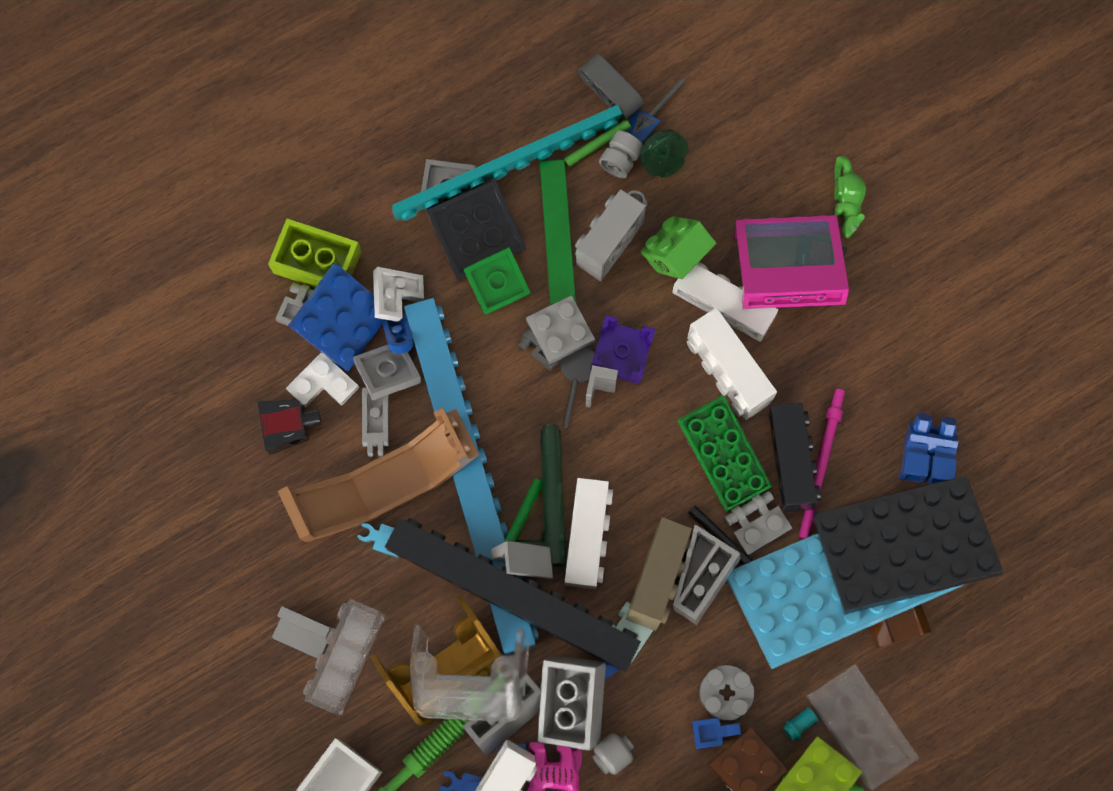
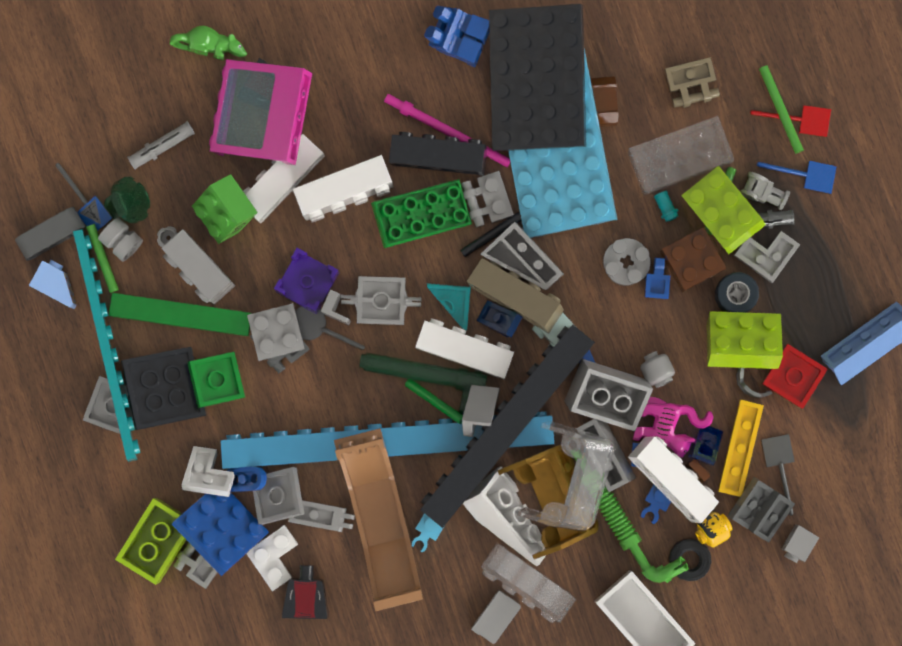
camera: 75 degrees left, 10 degrees up
(422, 602) = (496, 508): none -> white wedge
(560, 101) = (54, 283): none -> light blue slope
(620, 433) = (381, 300): none -> light grey plate
(629, 563) = (499, 319): none -> dark blue slope
(638, 512) = (454, 300): none -> teal tile
(728, 173) = (159, 146): none -> light grey pin
(956, 719) = (691, 75): none -> dark tan plate

